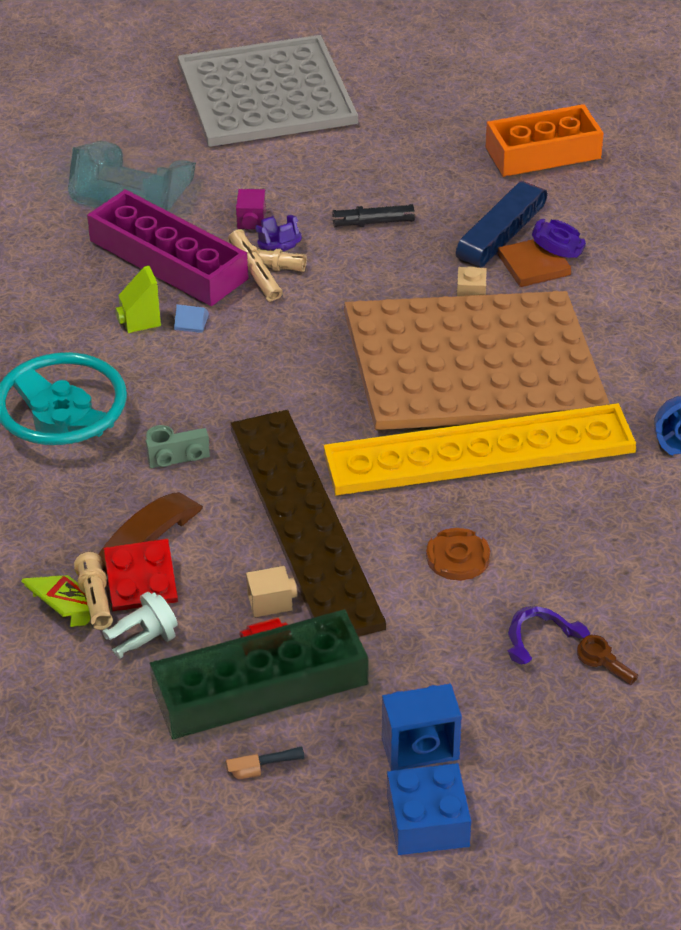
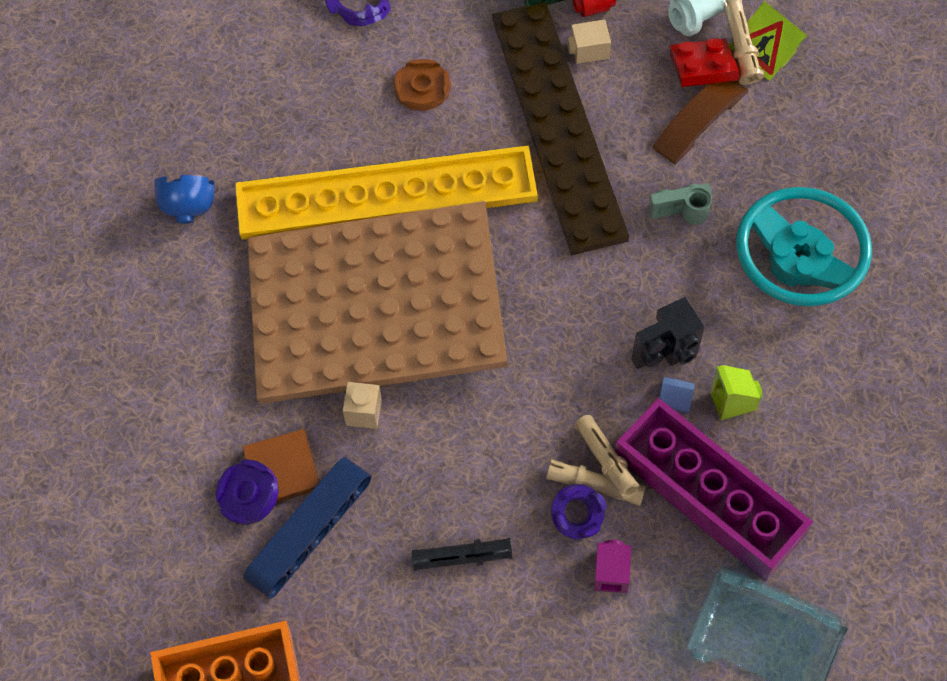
camera: 175 degrees left, 20 degrees up
(198, 330) = (674, 336): none -> black brick

